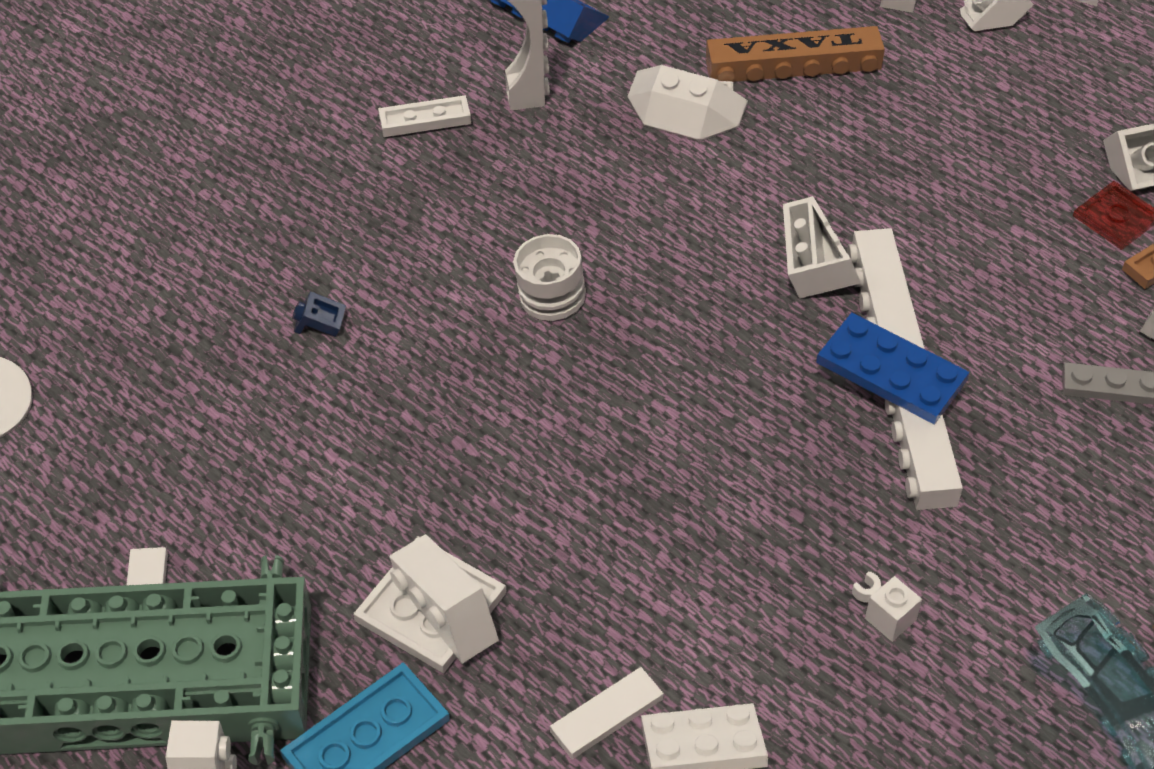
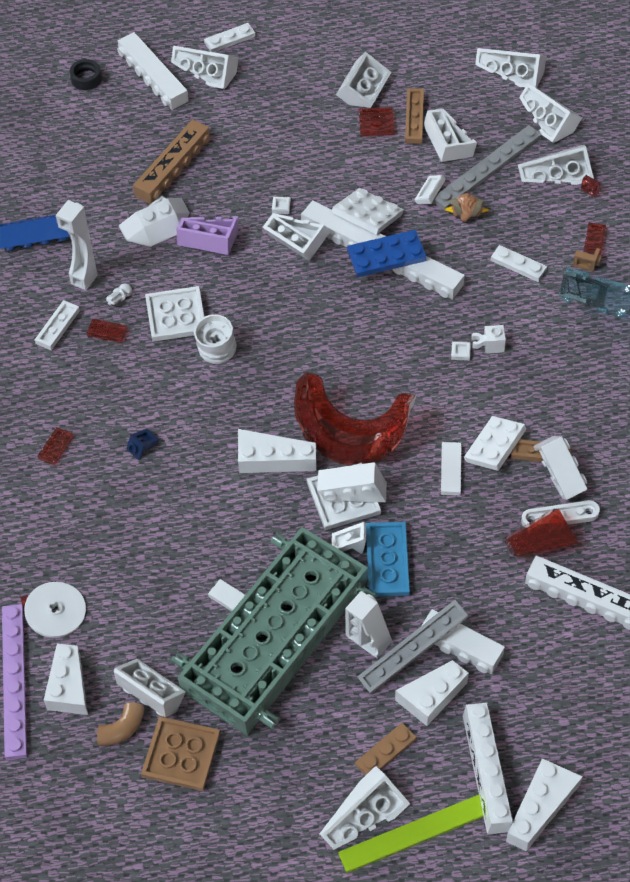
camera: 50 degrees left, 5 degrees up
(239, 235) = (55, 446): none -> clear red tile
(357, 661) = (350, 538): none -> white slope
(424, 468) = (274, 453): none -> white wedge
(466, 168) = (107, 330): none -> clear red tile
(527, 515) = (343, 437): none -> clear red windscreen
(546, 144) = (119, 294): none -> white axle
(560, 206) = (174, 313): none -> white plate
(716, 163) = (208, 234): none -> lavender wedge
(833, 581) = (460, 351): none -> white tile
(856, 207) = (281, 205): none -> white tile
(947, 302) = (367, 211): none -> white plate
(1073, 550) = (518, 263): none -> white plate
(1074, 350) = (430, 189): none -> white tile
(1093, 412) = (467, 206): none -> hair

